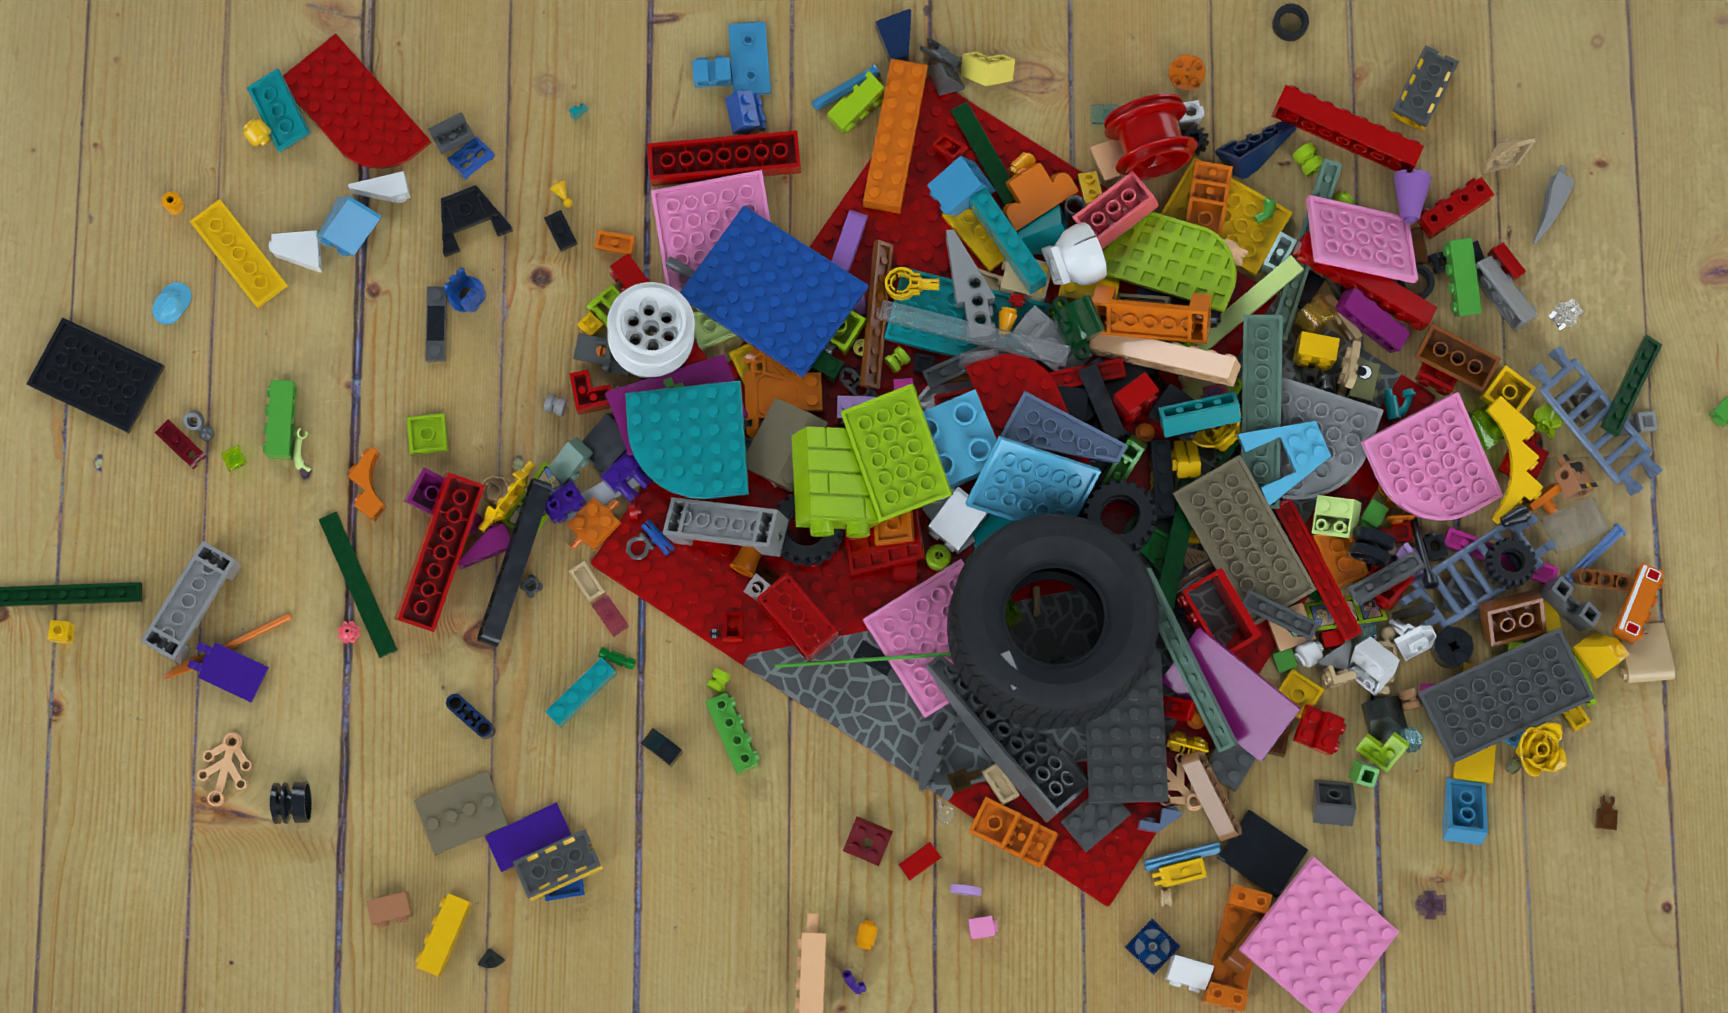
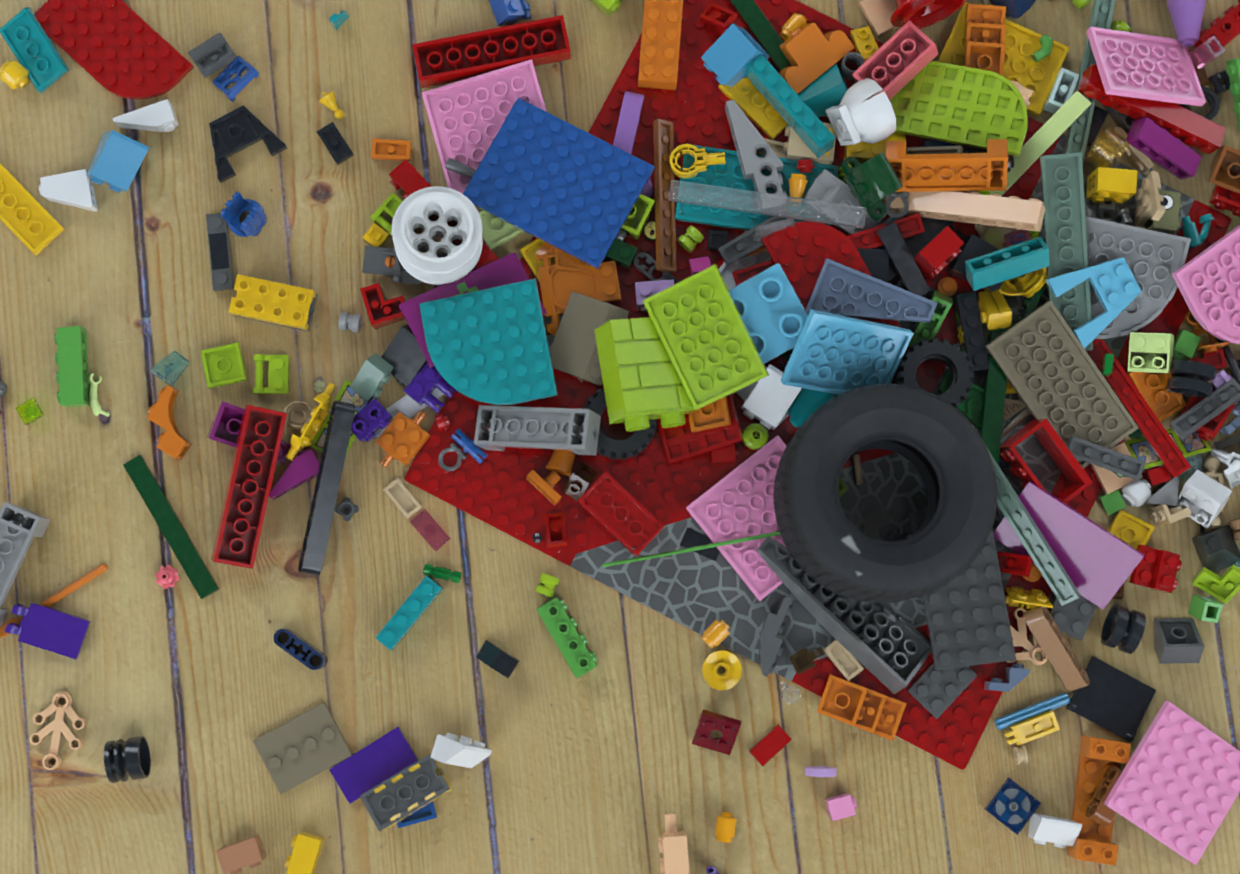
camera: 10 degrees left, 5 degrees up
(375, 431) = (170, 368): none -> clear light blue slope
(479, 448) = (277, 377): none -> lime plate
(483, 378) = (273, 303): none -> yellow piece
(614, 830) = (459, 751): none -> white slope
(728, 583) = (545, 486): none -> orange tile
(878, 744) = (716, 633): none -> light orange brick
(887, 774) = (732, 670): none -> yellow dish
(1098, 339) = (903, 195): none -> dark grey piece
(1282, 784) = (1123, 628): none -> black wheel
(1291, 524) = (1107, 364): none -> green tile
(1425, 231) = (1206, 52): none -> clear pink brick

